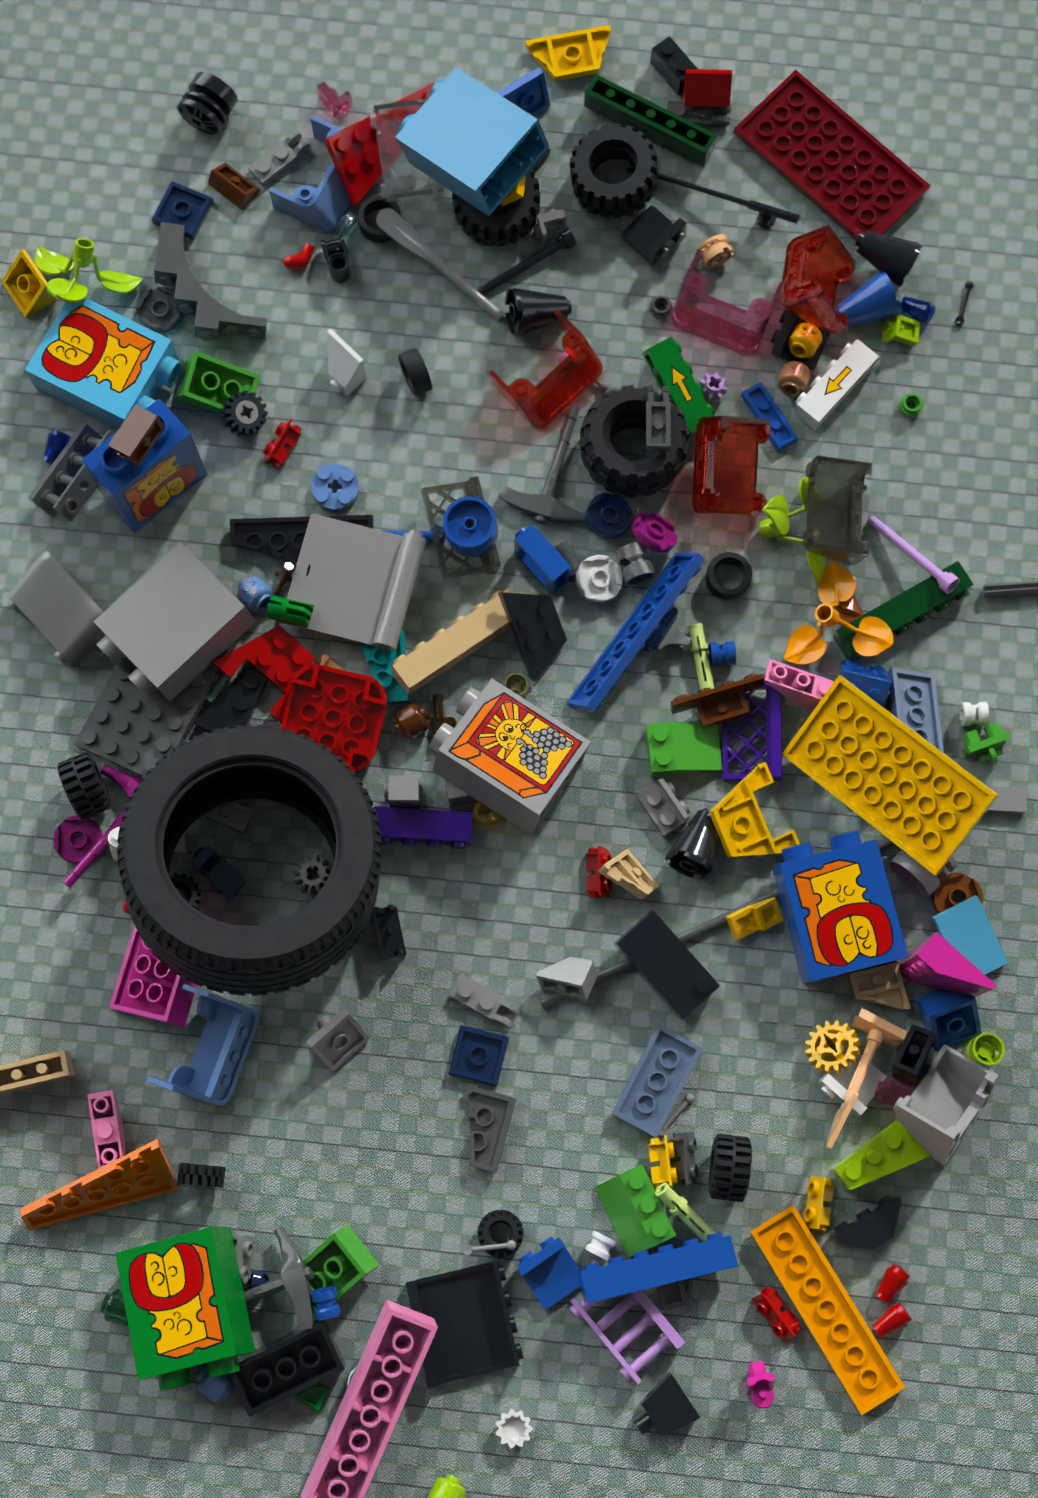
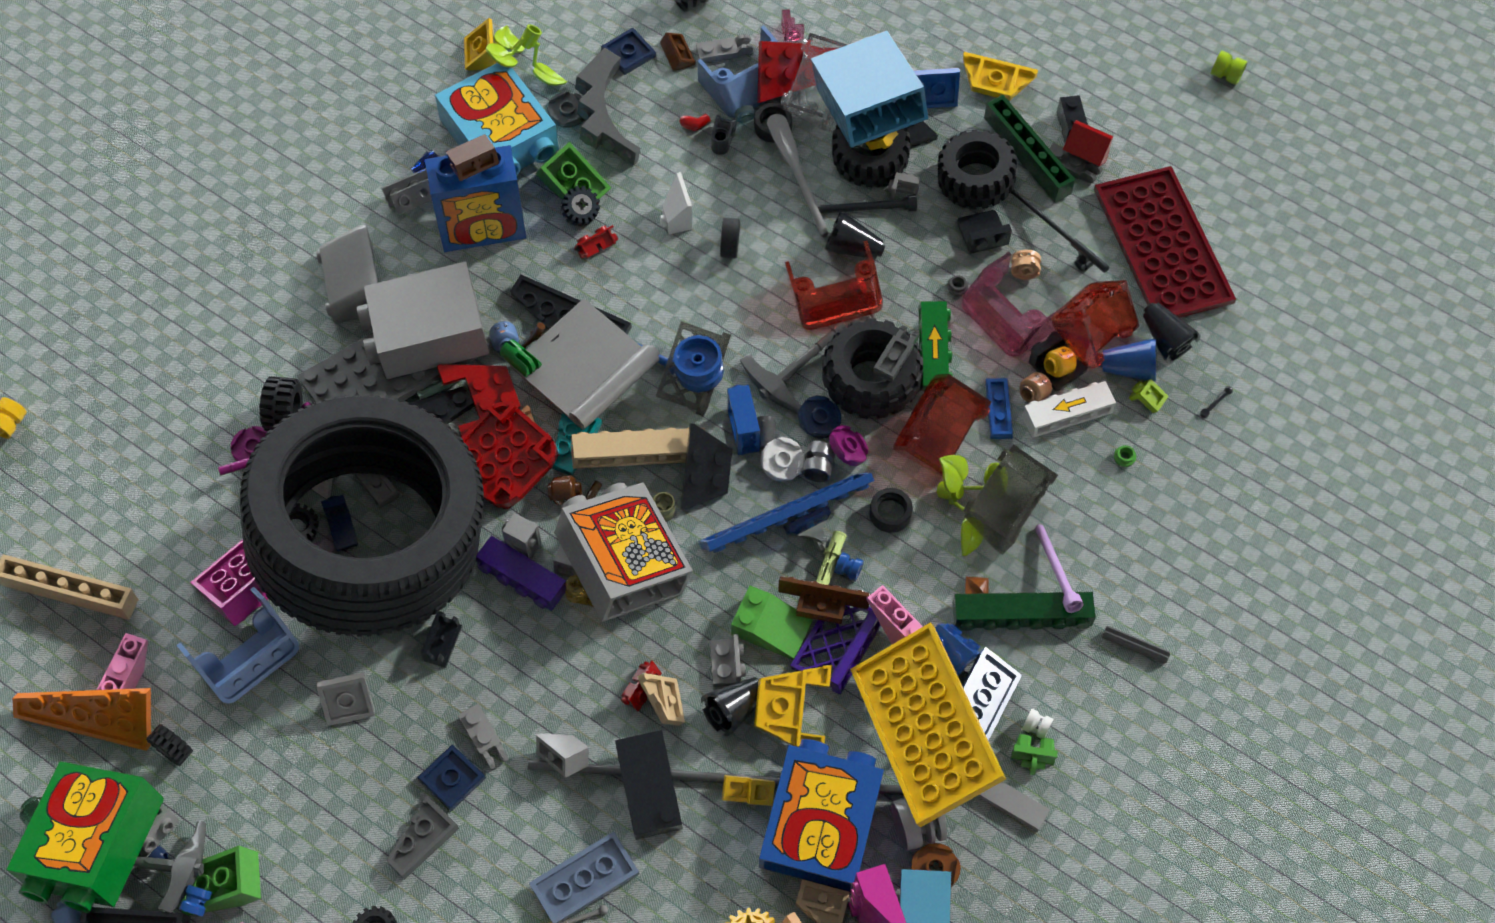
camera: 30 degrees right, 15 degrees down
(335, 474) = (613, 282): medium blue plate -> none
(713, 386) = (963, 362): lavender gear -> none
(837, 585) = (978, 563): light orange plant -> none
(918, 309) = (1172, 386): clear blue cone -> none

